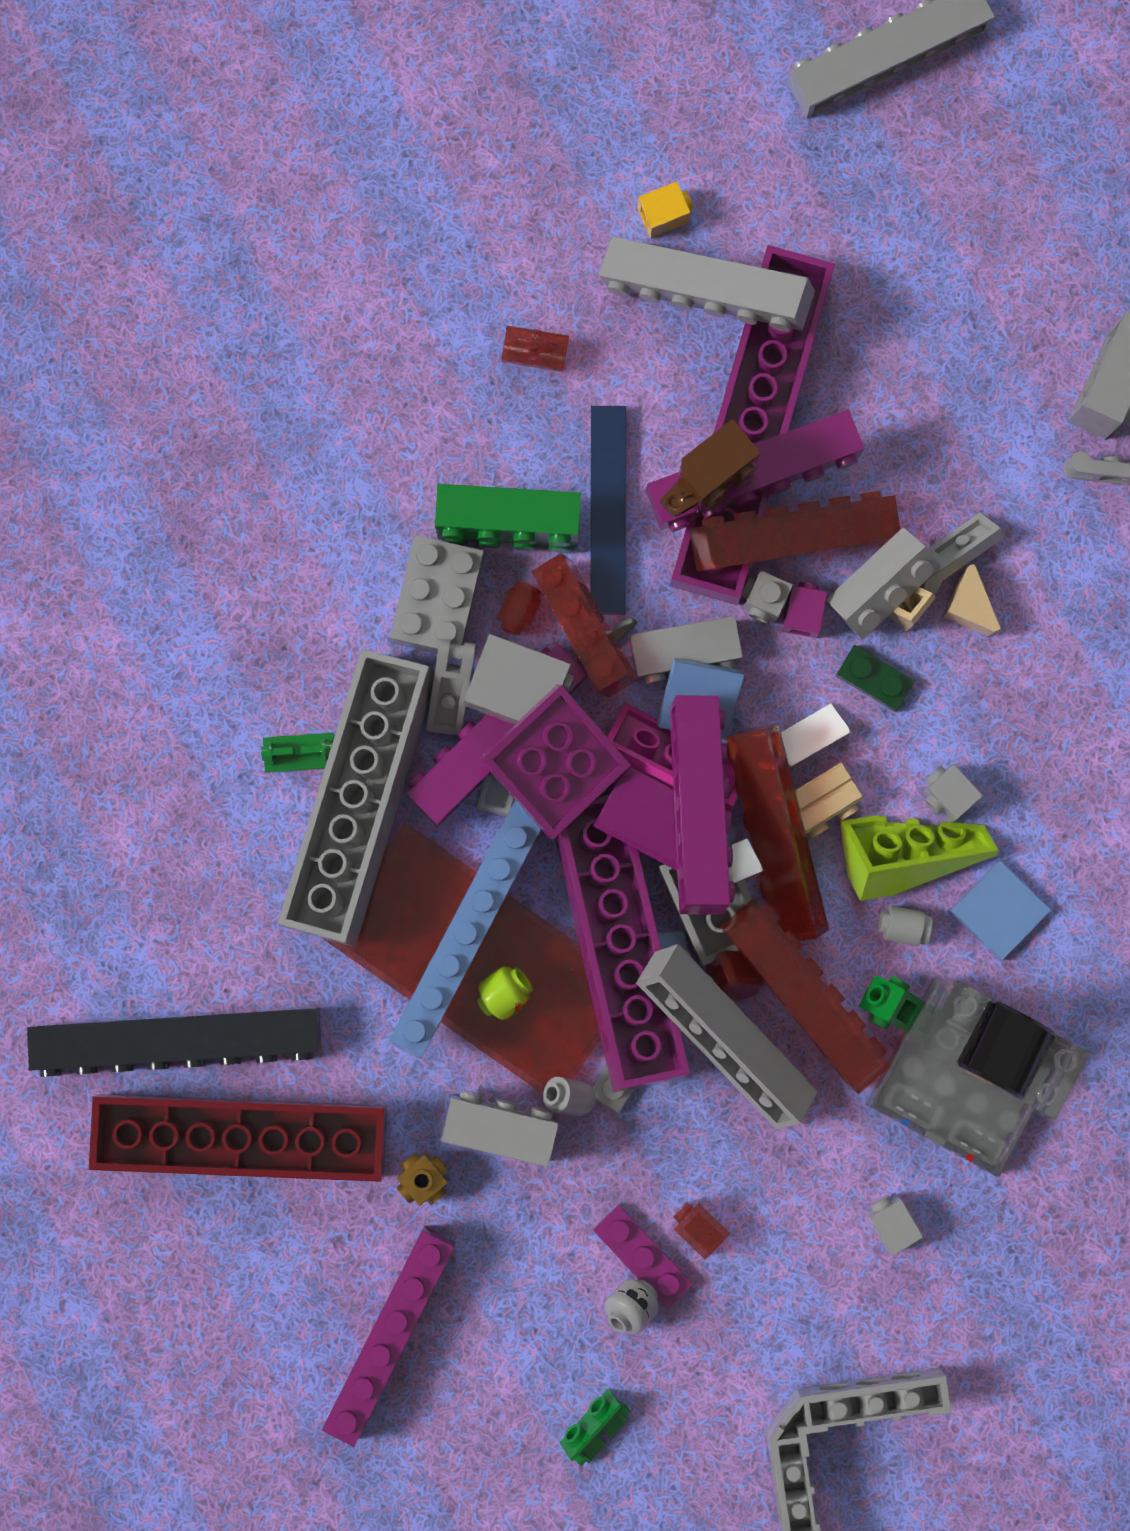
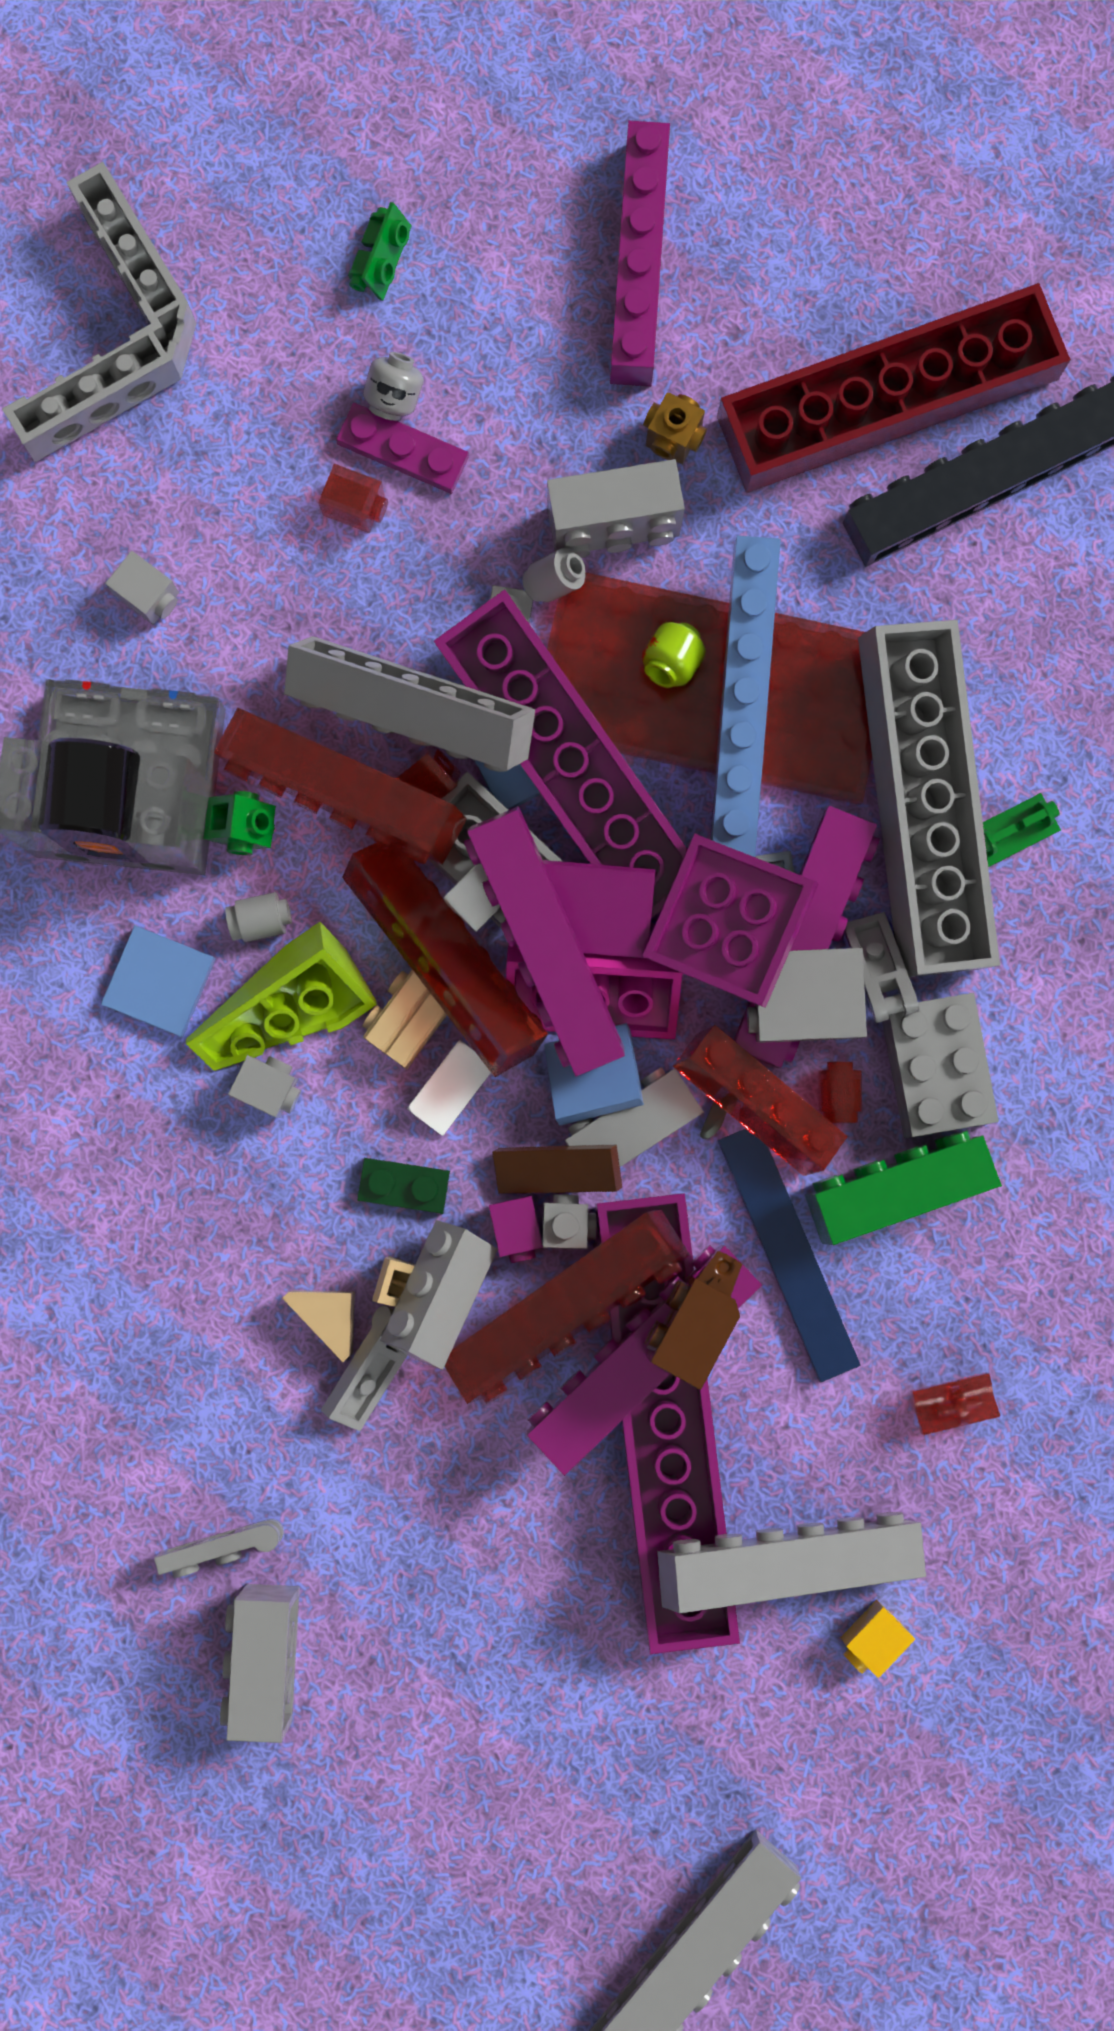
camera: 160 degrees right, 0 degrees up
(757, 638) = (557, 1169): none -> reddish brown tile

